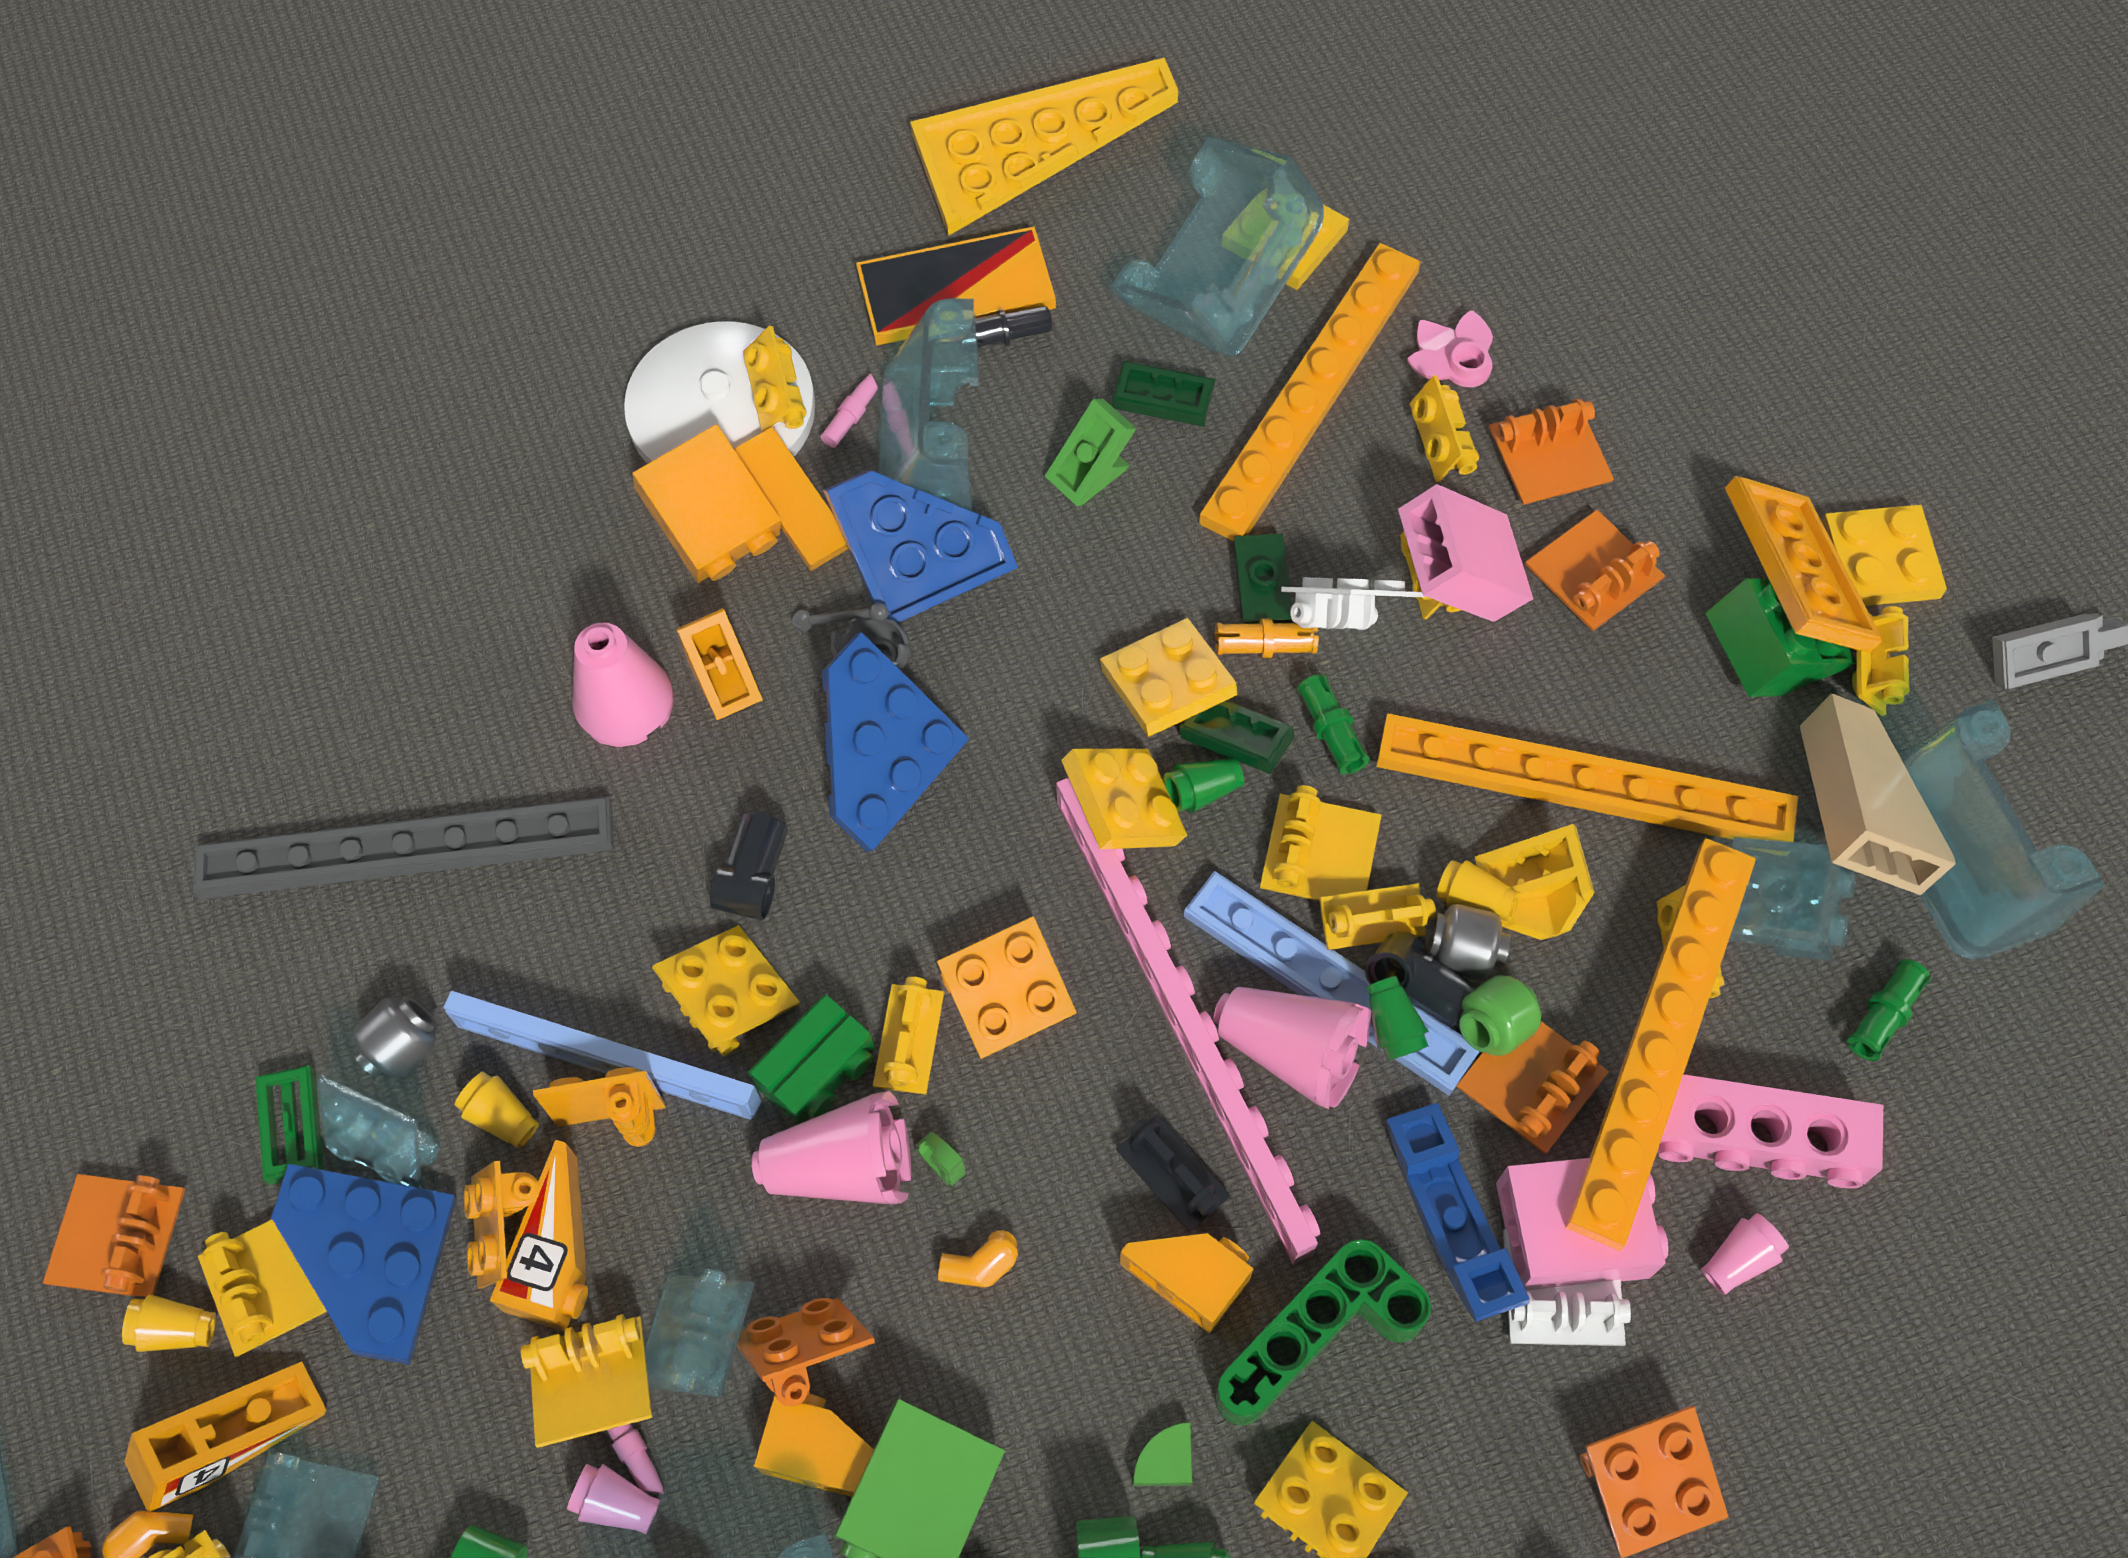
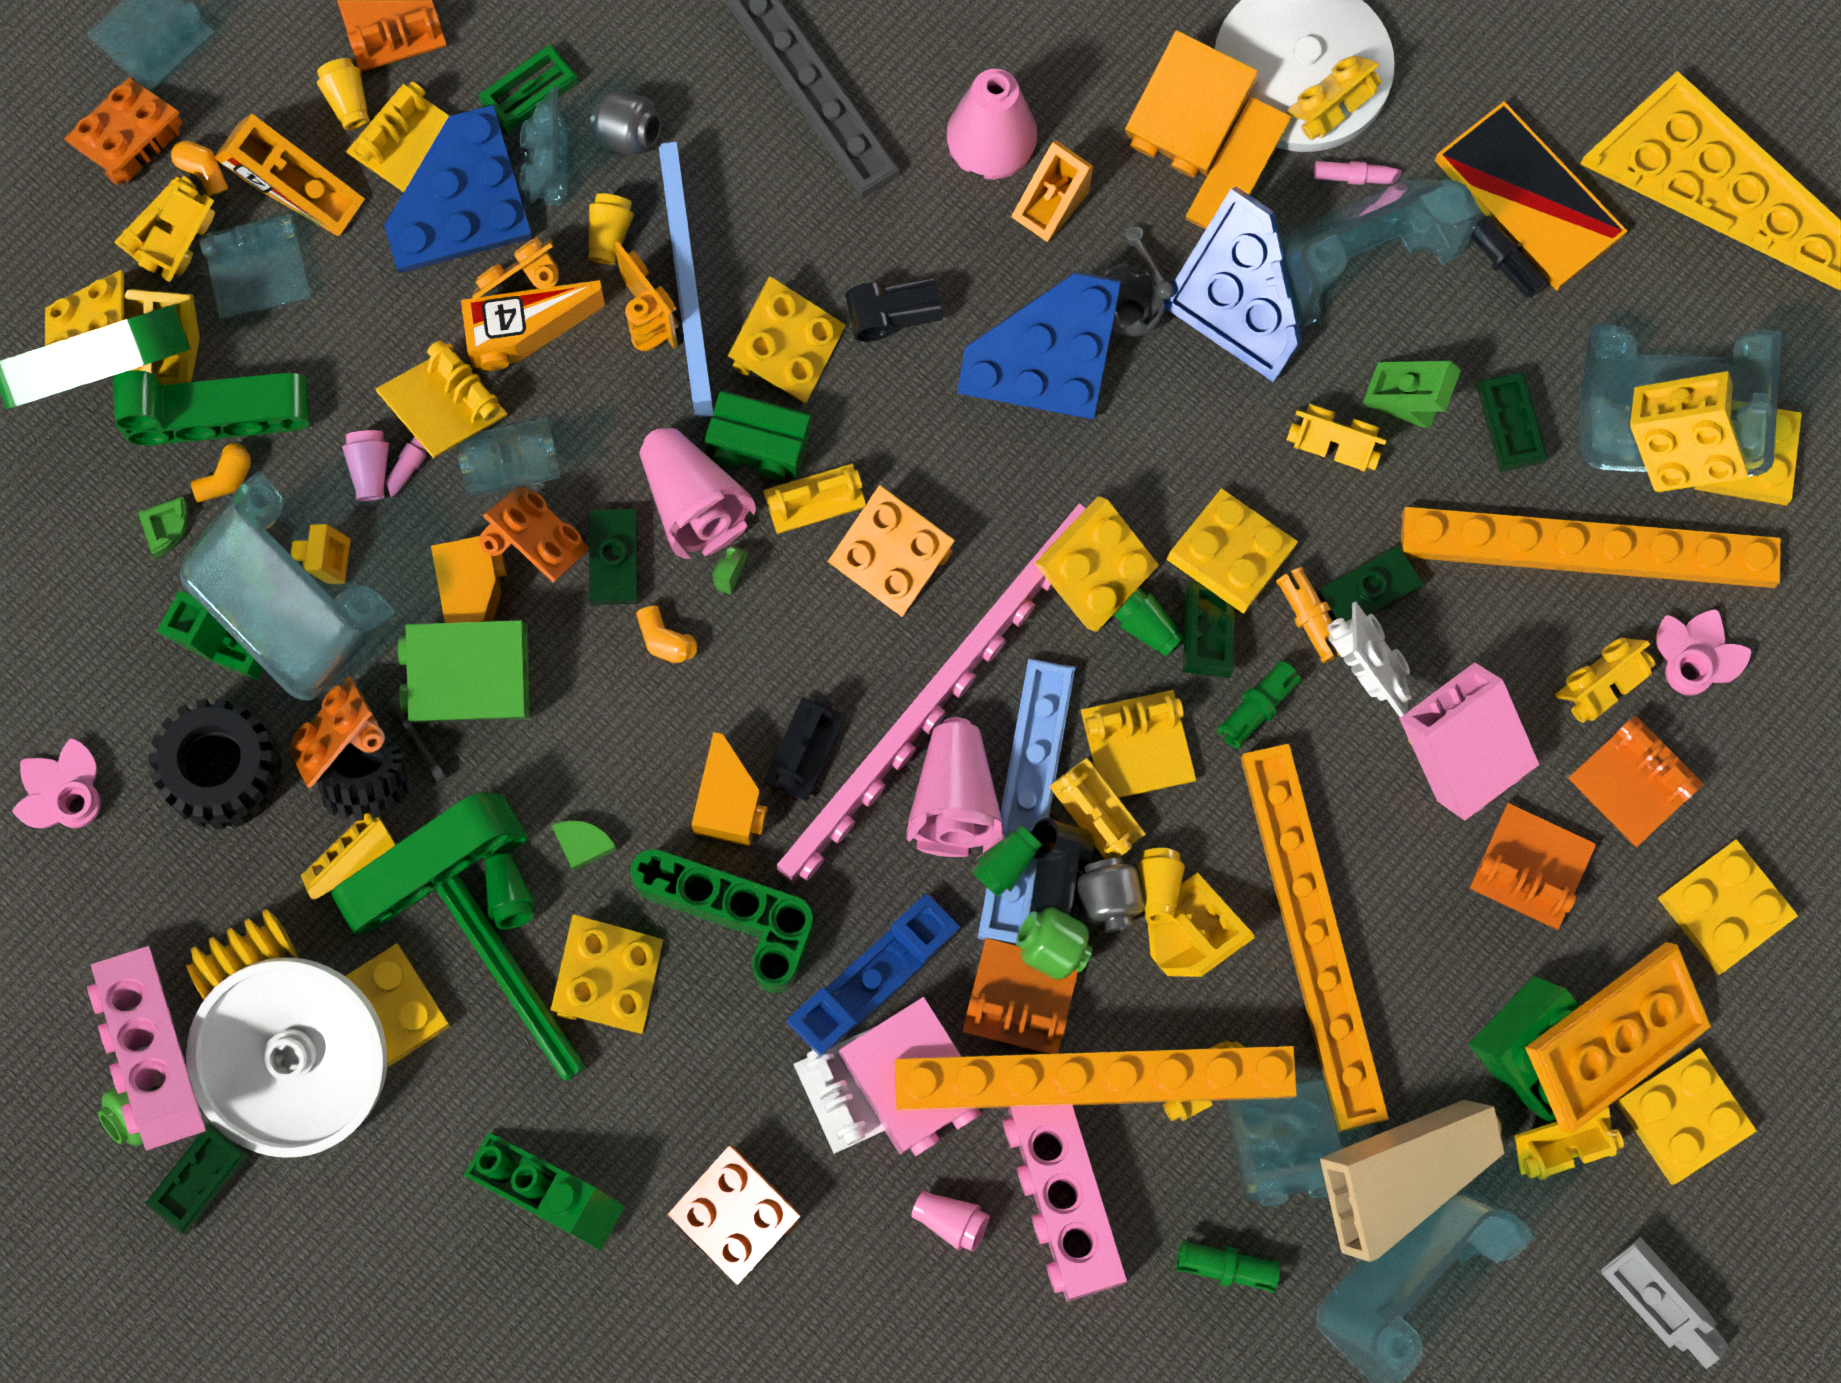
camera: 60 degrees right, 10 degrees up
(862, 1276) = (613, 557): none -> dark green plate
(1116, 526) = (1354, 442): none -> yellow hinge
(1258, 249) = (1687, 432): none -> yellow bracket
(1699, 436) = (1727, 907): none -> yellow plate

